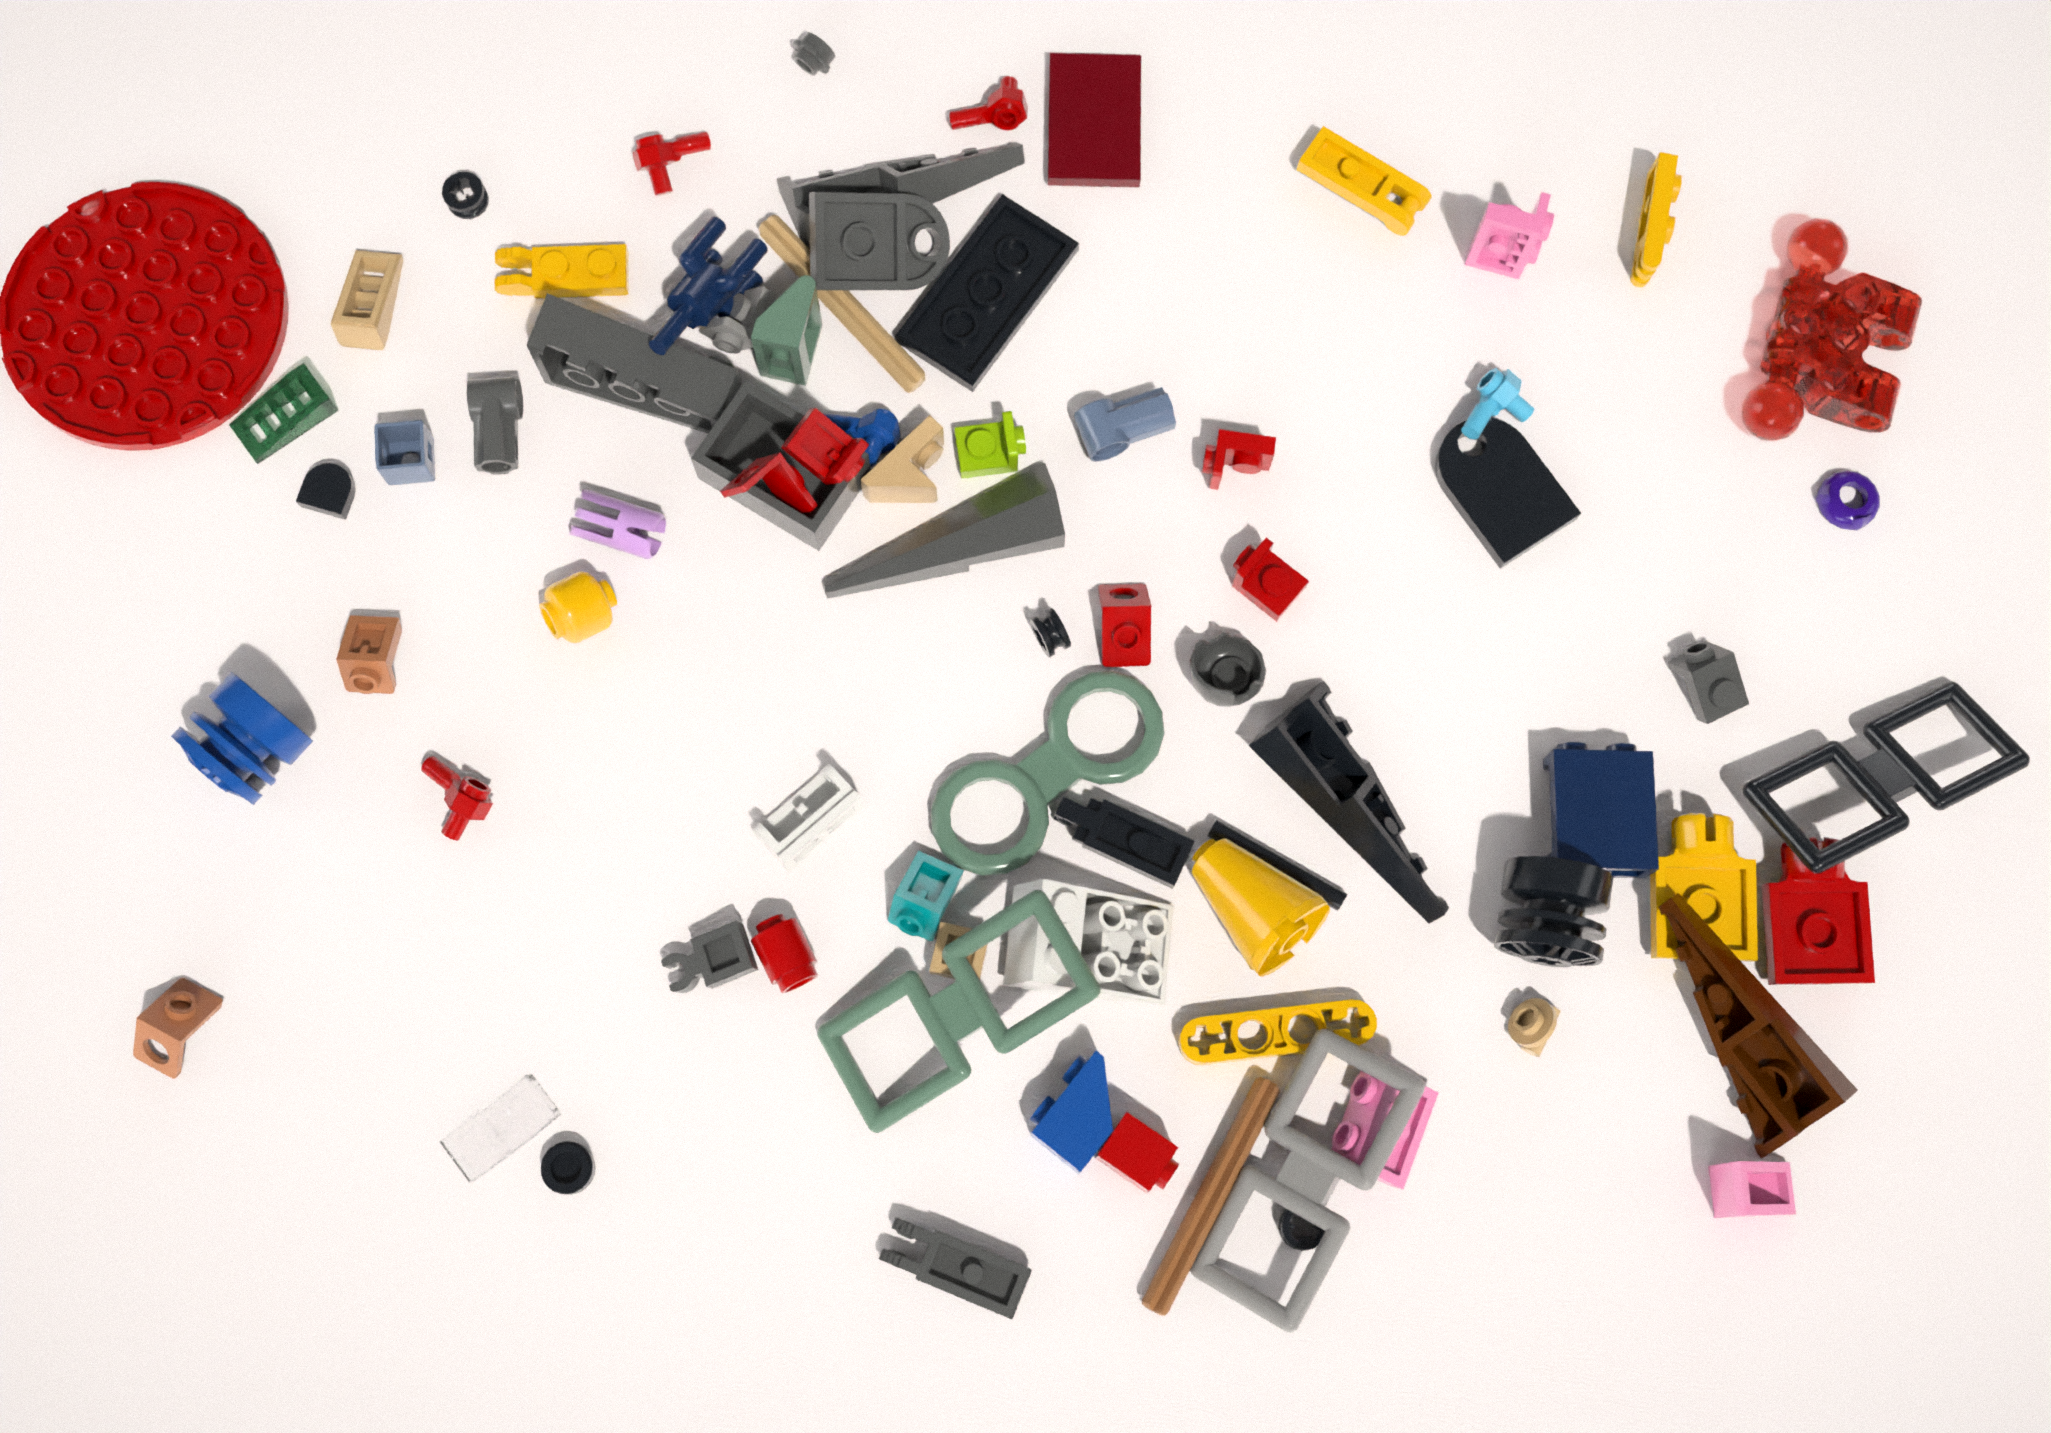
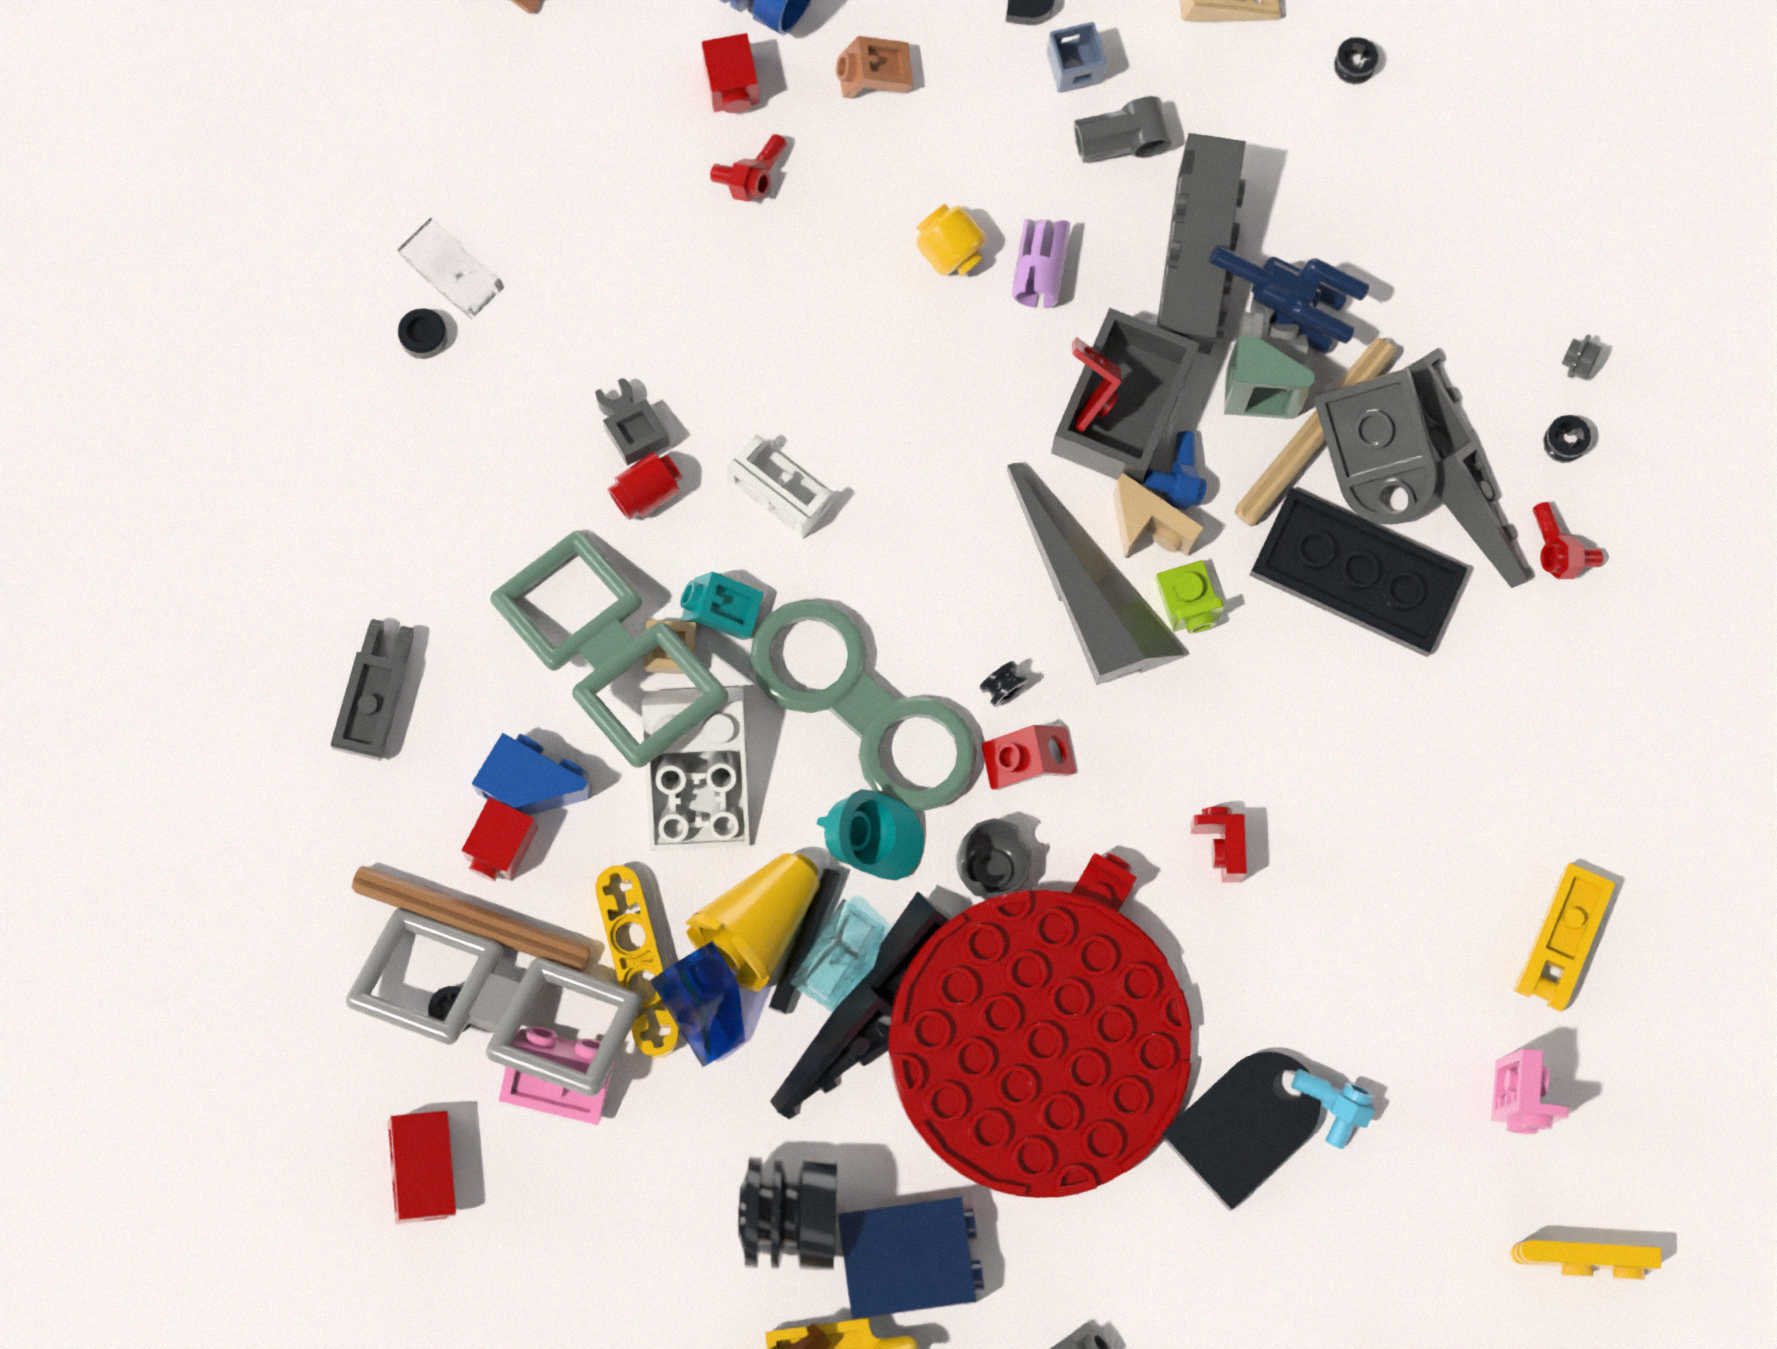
camera: 80 degrees right, 0 degrees up
(345, 800) = (730, 73): none -> red brick
(565, 271) = (1296, 168): yellow hinge -> none
(655, 154) = (1435, 225): red piece -> none
(825, 448) = (1136, 425): red bracket -> none
(877, 78) = (1572, 426): none -> black bush
(1094, 120) = (1574, 649): dark red tile -> none
(1112, 427) = (1234, 713): sand blue piece -> none
(1126, 838) = (806, 789): black hinge -> none
(1186, 780) = (874, 834): none -> teal piece
(1300, 829) = (840, 956): none -> clear light blue slope
(1330, 970) = (703, 1002): none -> clear blue slope
(1408, 657) = (1040, 1043): none -> red tile
(1462, 1277) = (421, 1167): none -> red hinge
(1533, 1025) = (680, 1215): tan plate -> none

